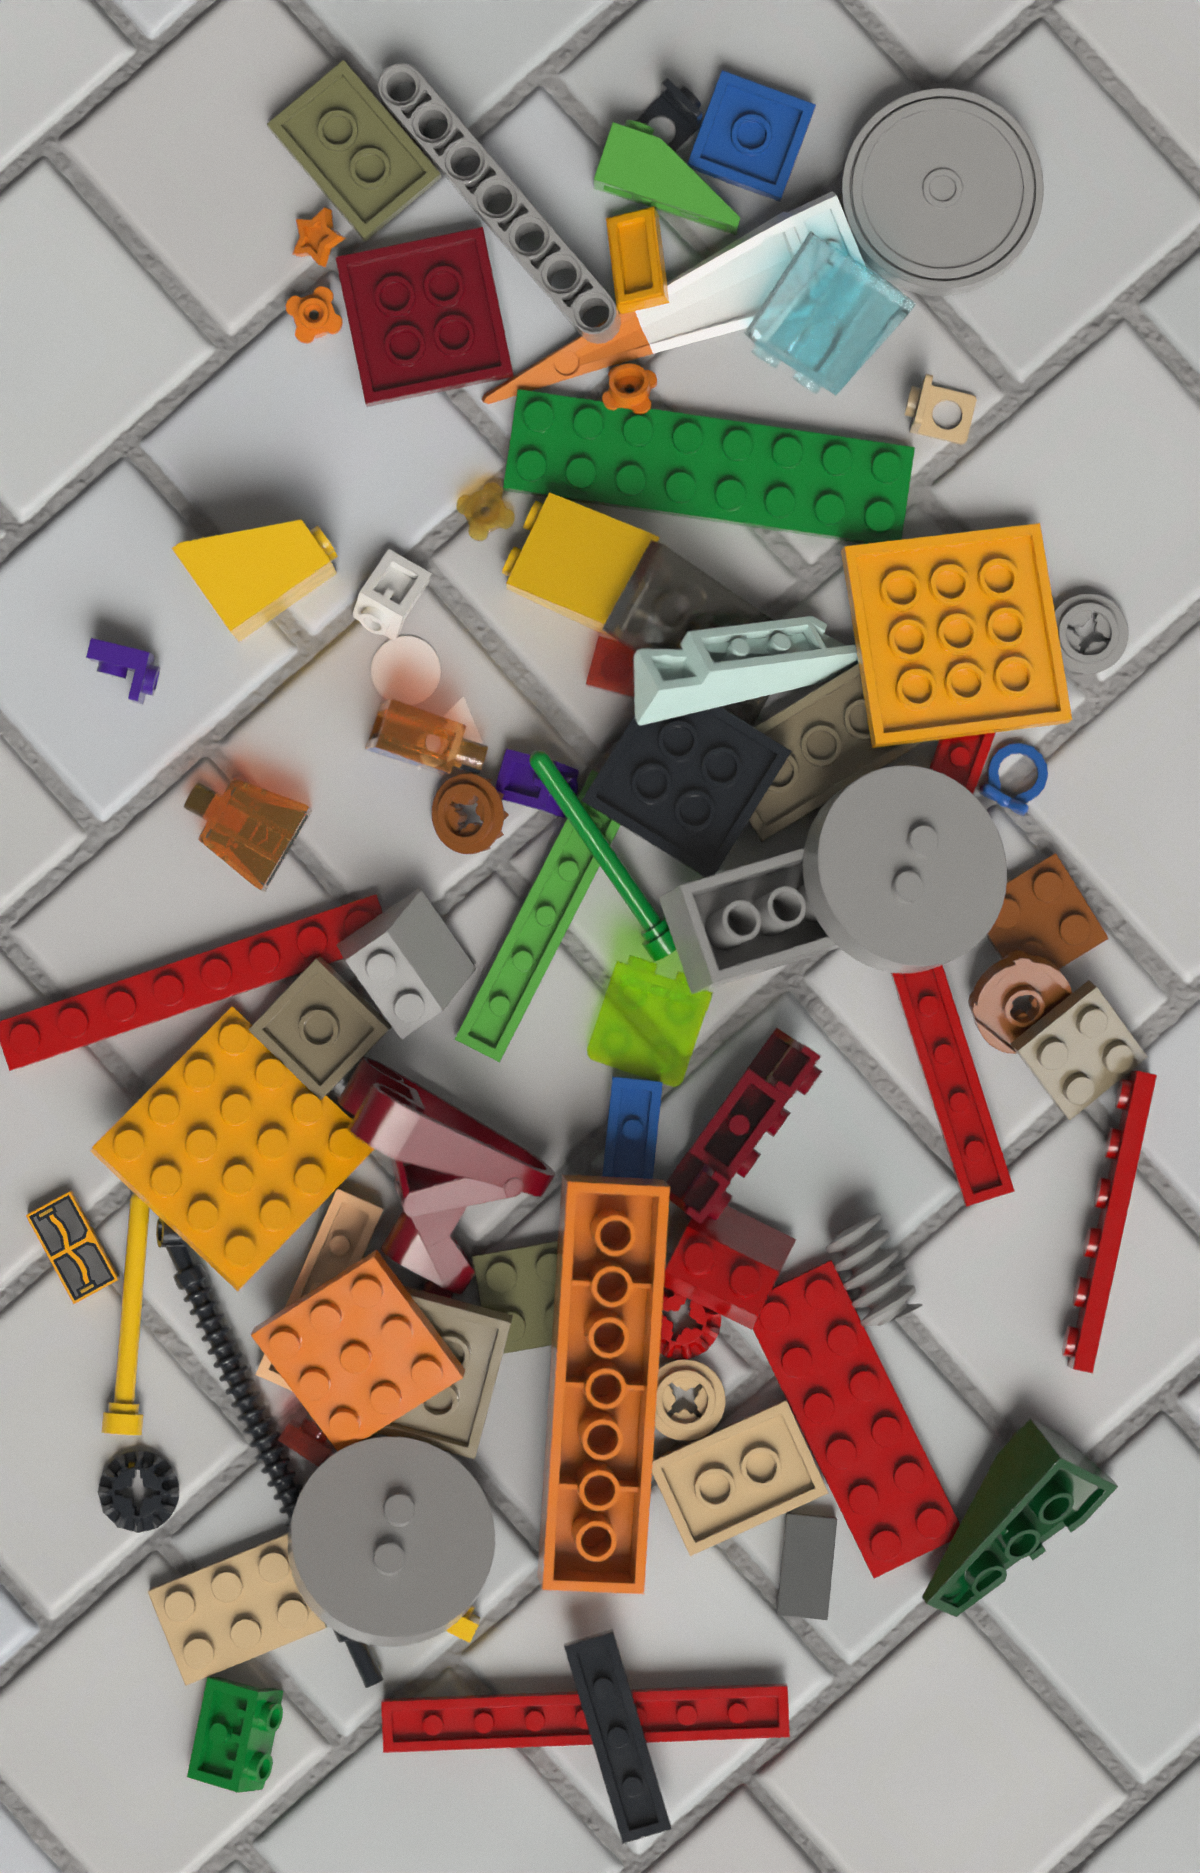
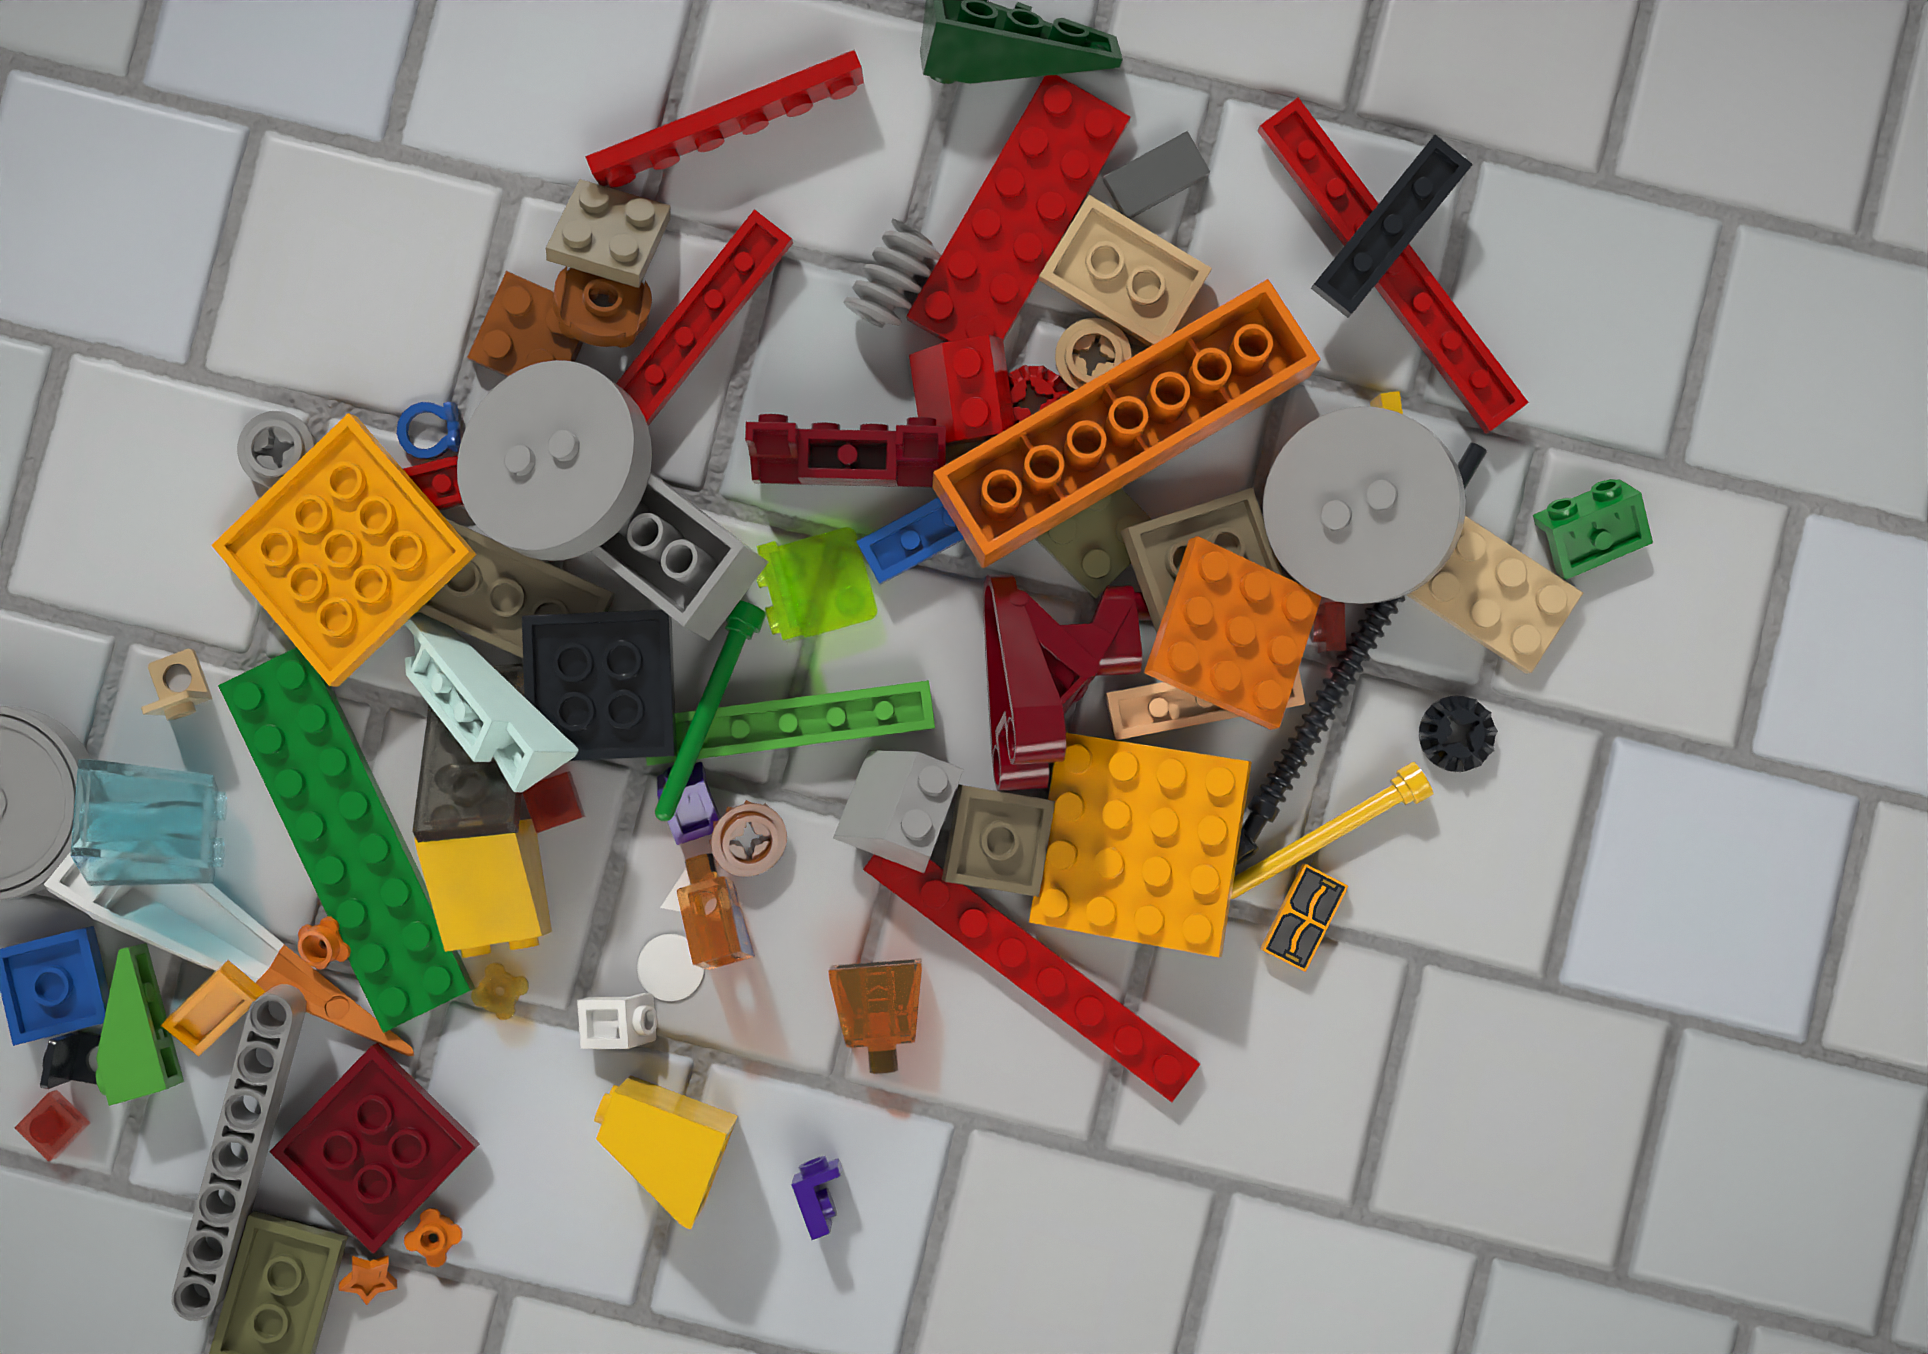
camera: 125 degrees left, 0 degrees up
(632, 54) = (52, 1125): none -> clear red plate

